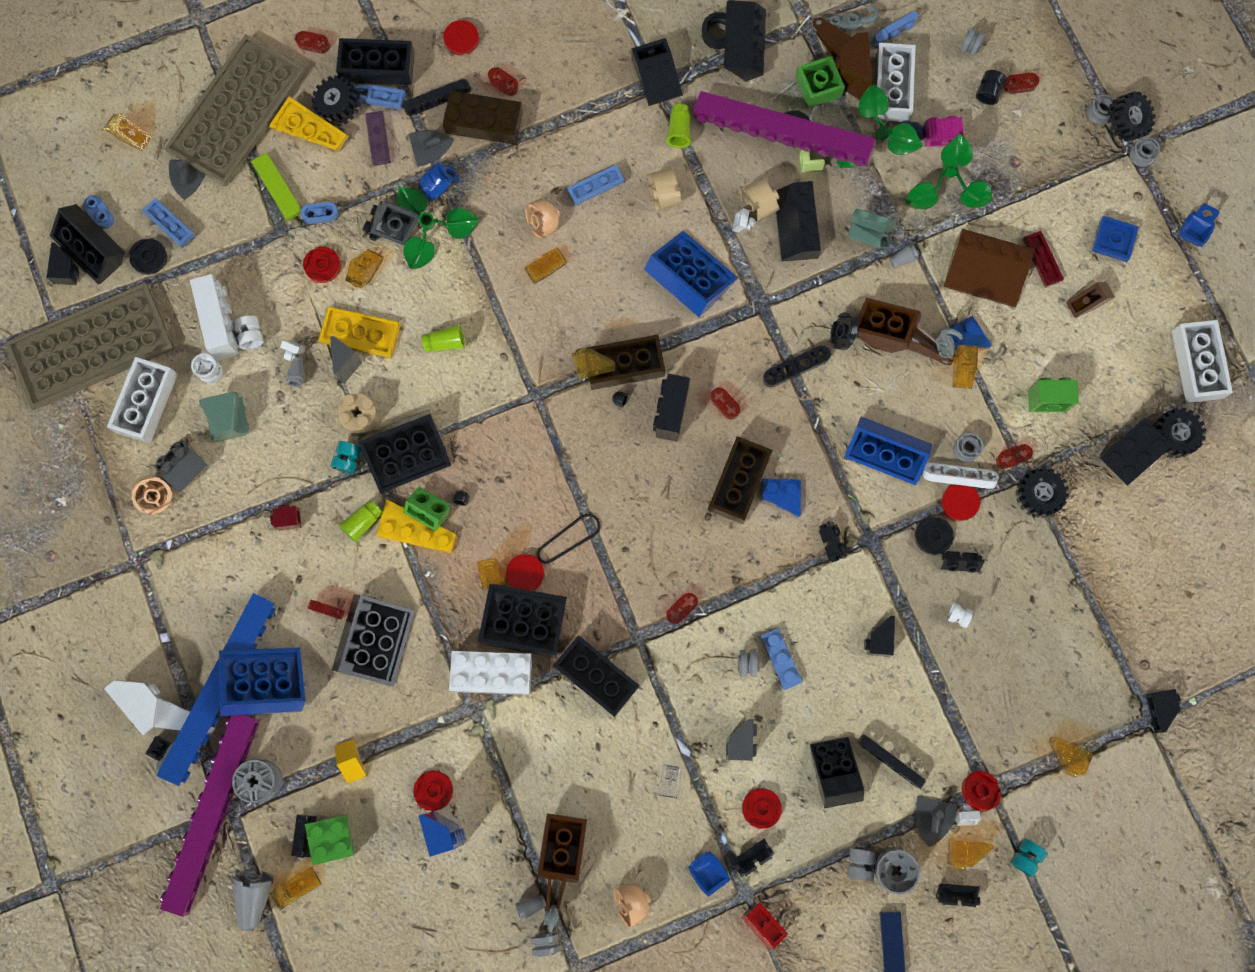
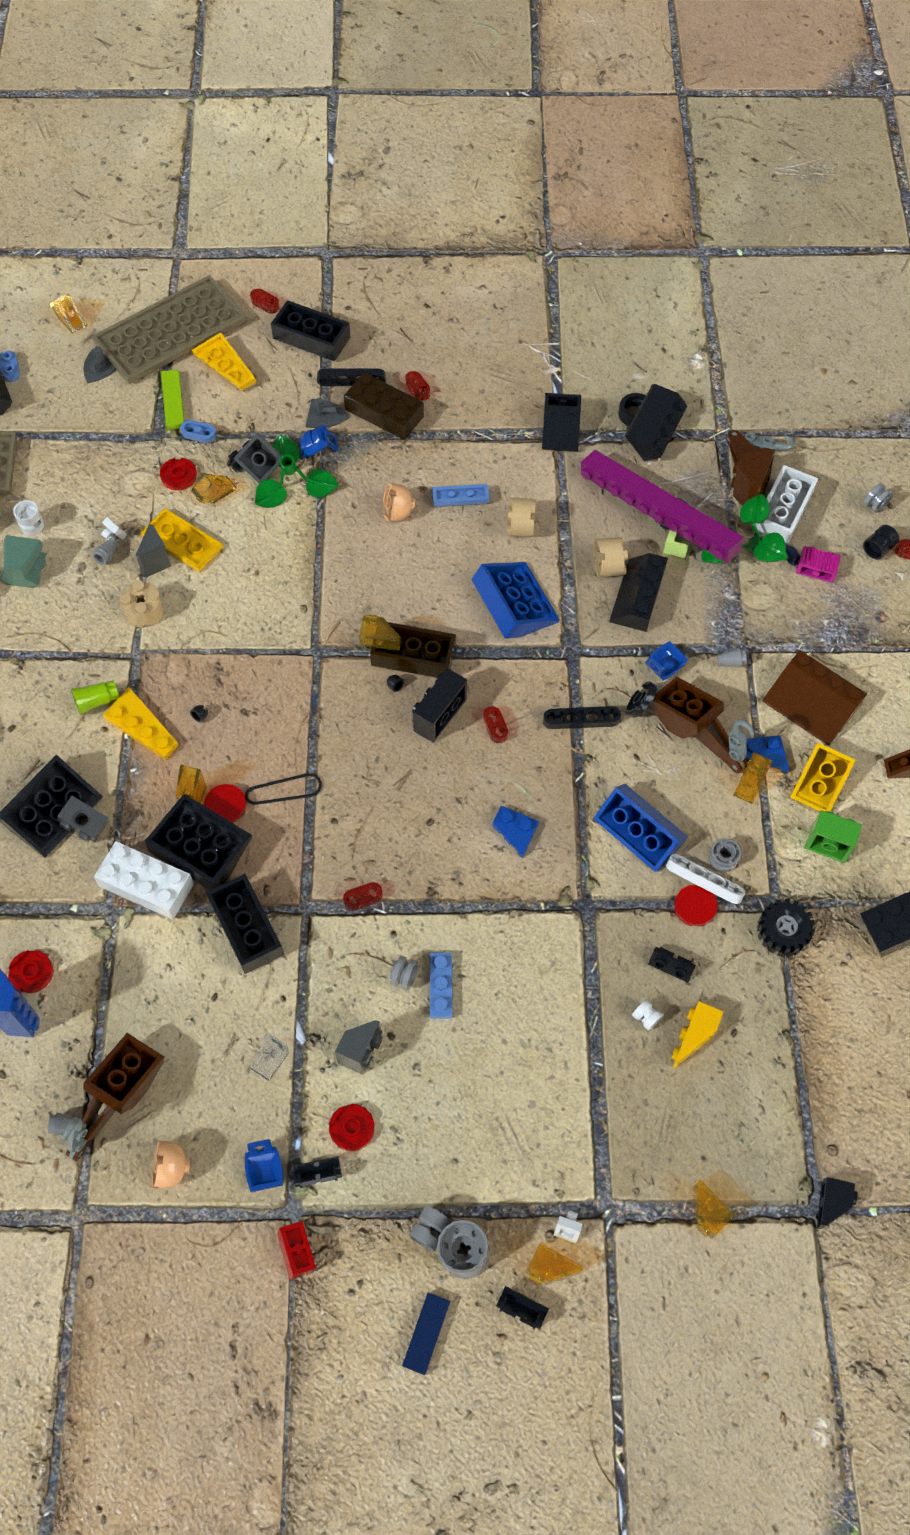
camera: 20 degrees right, 15 degrees down
(148, 256) = (30, 414): black tile -> none
(168, 223) = (63, 394): medium blue plate -> none
(215, 317) = (58, 478): white brick -> none
(248, 333) = (81, 502): white wheel -> none
(286, 517) = (28, 668): dark red brick -> none
(326, 609) = (20, 762): clear red beam -> none
(344, 103) = (260, 348): black wheel -> none
(349, 451) = (113, 633): teal wheel -> none
(378, 138) = (282, 392): clear purple tile -> none
(381, 96) = (301, 360): medium blue hinge -> none
(404, 451) = (167, 651): black slope -> none
(422, 637) = (73, 810): none -> dark grey brick
(427, 508) = (161, 708): bright green brick -> none
(444, 339) = (255, 571): lime plant -> none
(461, 37) = (397, 340): red tile -> none
(545, 944) = (59, 1168): light grey wheel -> none
(547, 265) = (385, 545): clear yellow slope -> none
(679, 127) = (560, 476): lime plant -> none
(740, 480) = (476, 796): dark brown brick -> none
(742, 221) = (586, 572): white tile -> none
(819, 82) = (712, 481): bright green brick -> none
(832, 534) = (546, 883): black hinge -> none
(837, 773) = (446, 1123): black slope -> none
(849, 282) = (666, 660): none -> blue piece
(871, 228) = (709, 619): sand green piece -> none
(881, 639) = (553, 1005): black slope -> none
(891, 761) = (510, 1135): black beam -> none
(894, 29) = (809, 462): medium blue hinge -> none
(934, 535) = (654, 927): black tile -> none
(934, 818) = (532, 1217): dark grey shield -> none
(953, 154) = (819, 578): green plant -> none
(981, 791) = (594, 1206): red tile -> none
(1006, 611) = (701, 1028): none -> yellow slope
(1015, 460) = (770, 880): clear red beam -> none
(1023, 342) = (823, 778): none -> yellow slope
(1023, 862) = (610, 1305): teal wheel -> none
(1043, 259) = (875, 712): dark red tile -> none

